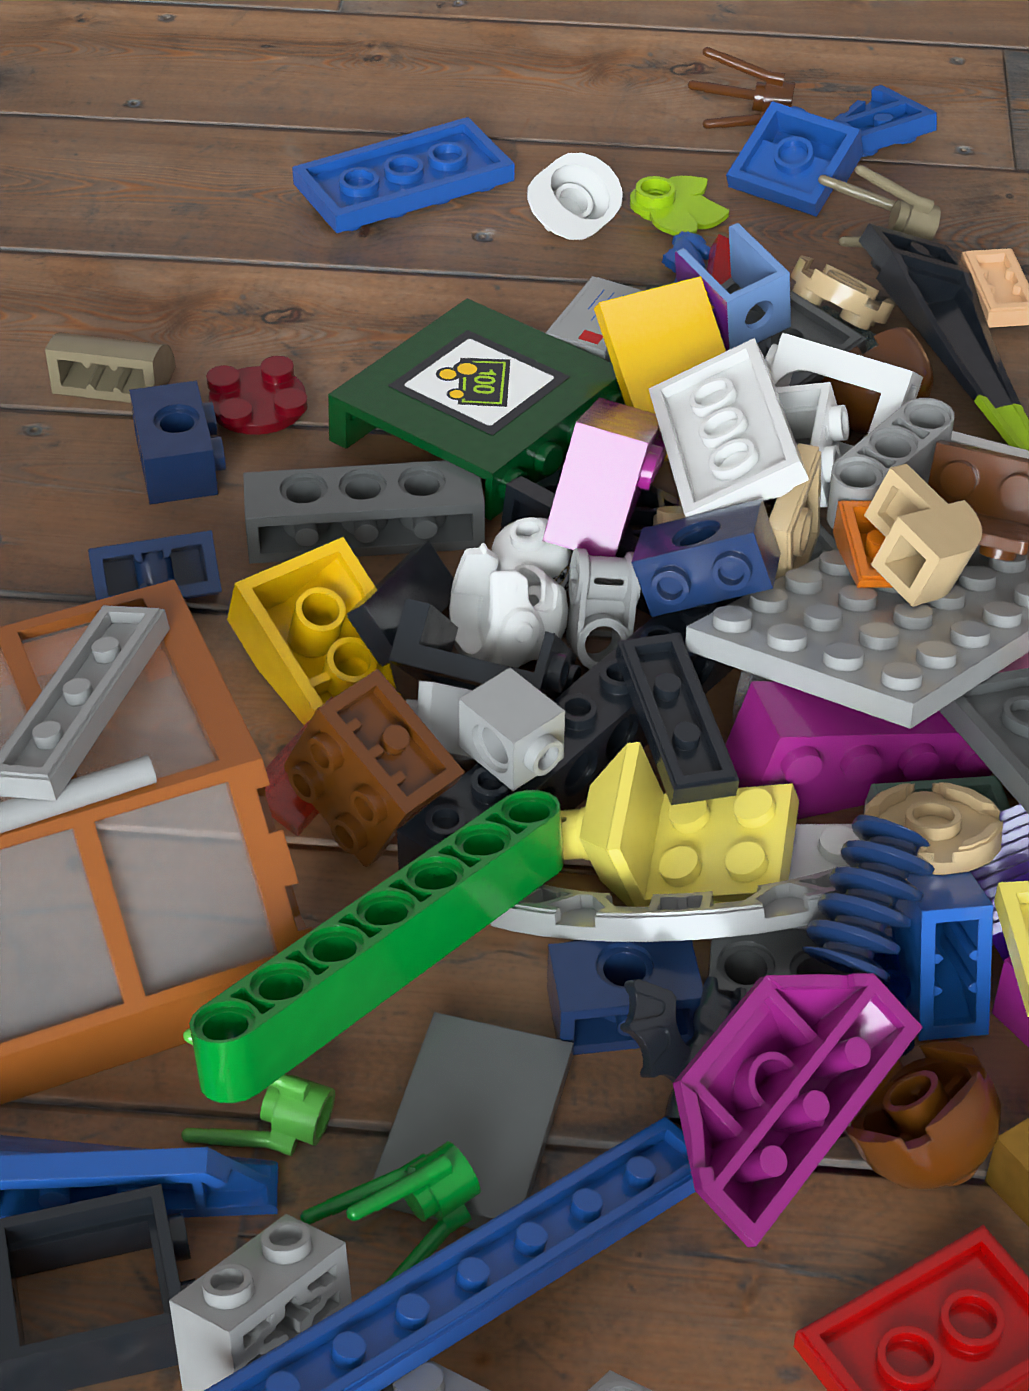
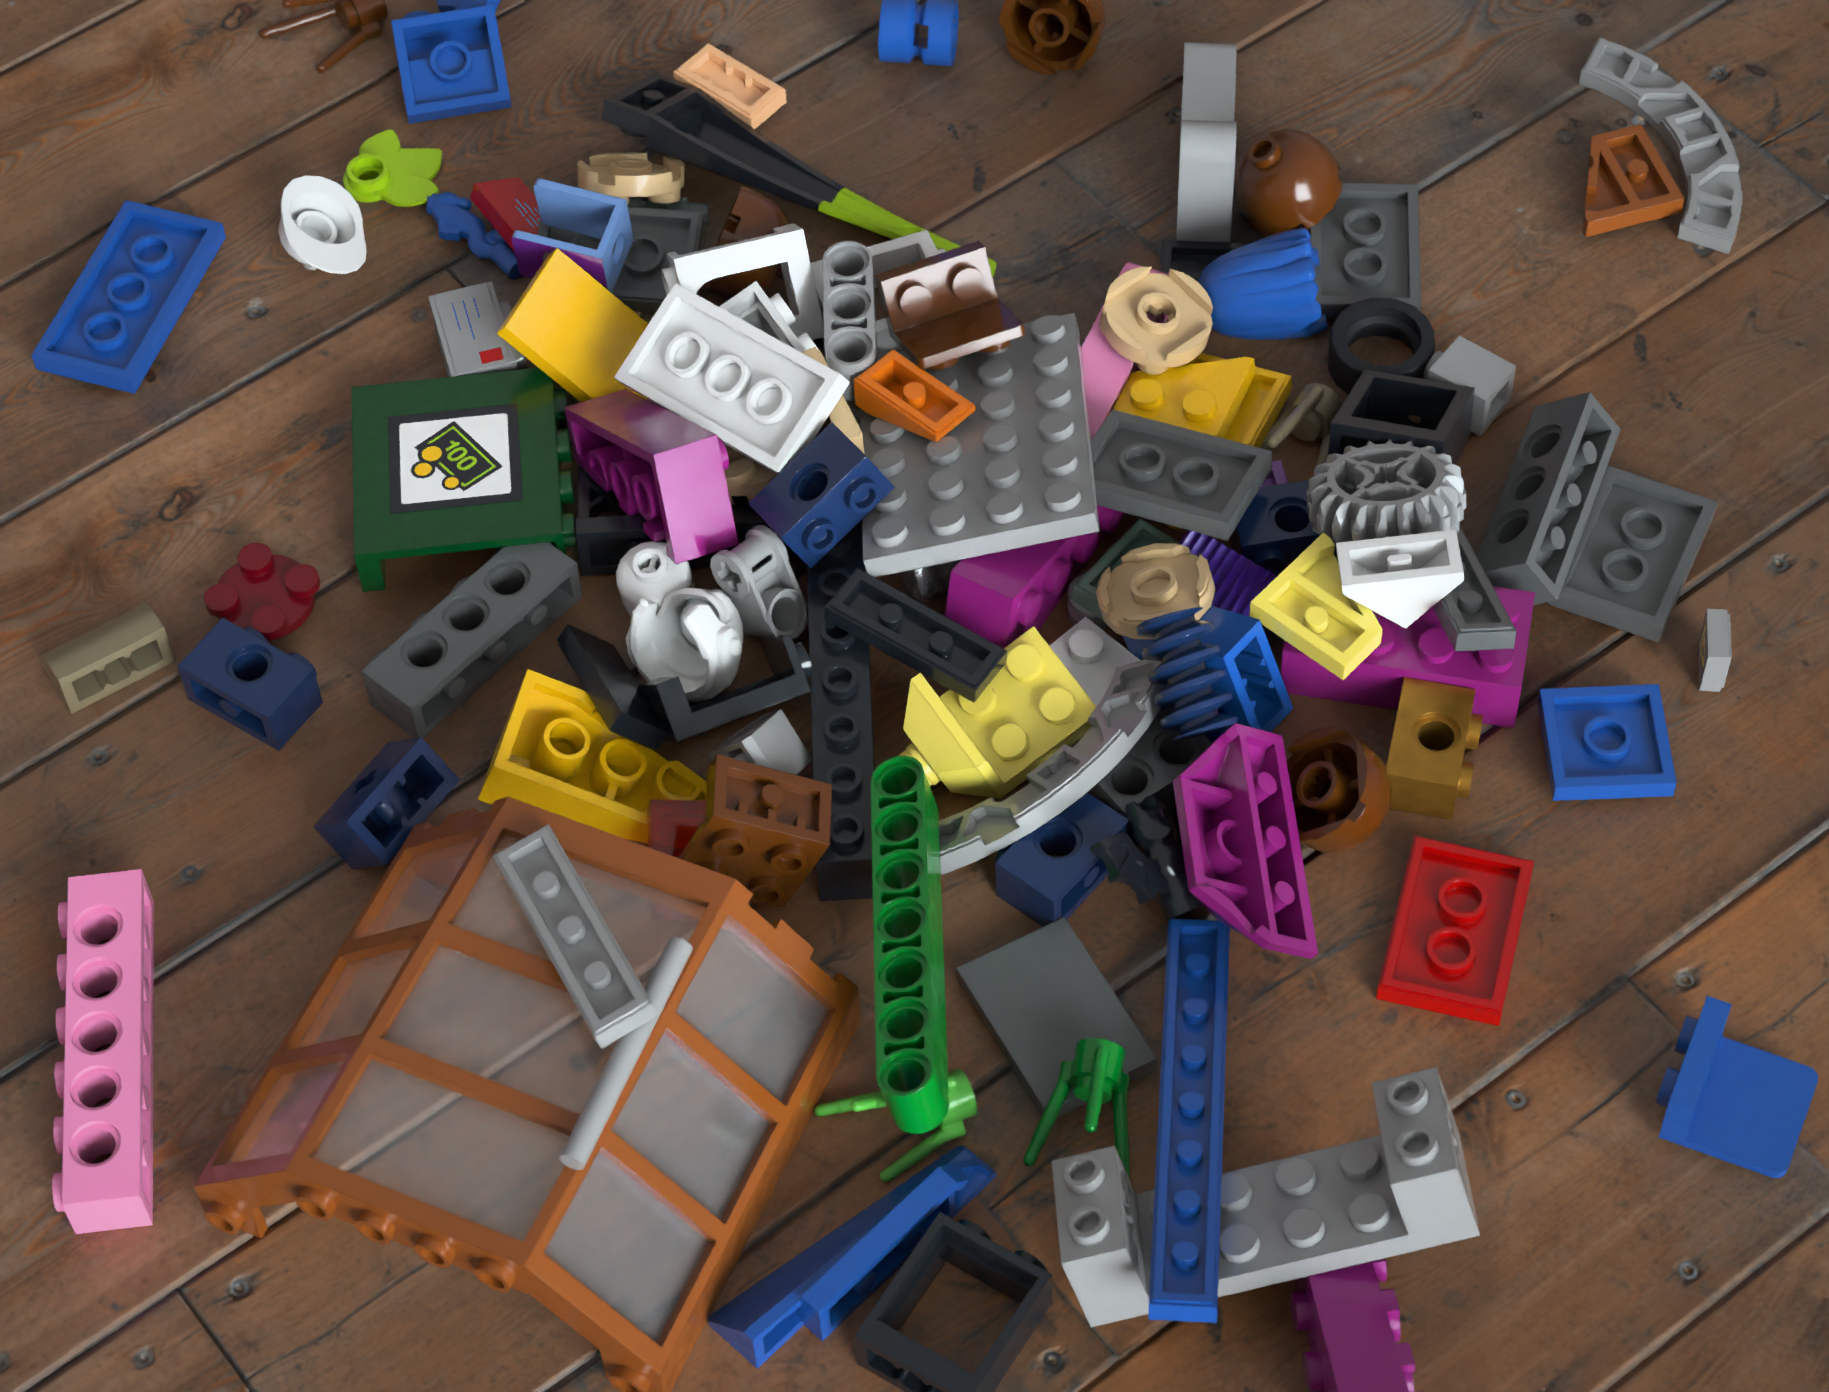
camera: 40 degrees left, 10 degrees up
(511, 729) = (834, 728): light grey brick -> none
(910, 215) = (598, 64): dark tan plant -> none
(924, 536) = (966, 367): tan brick -> none

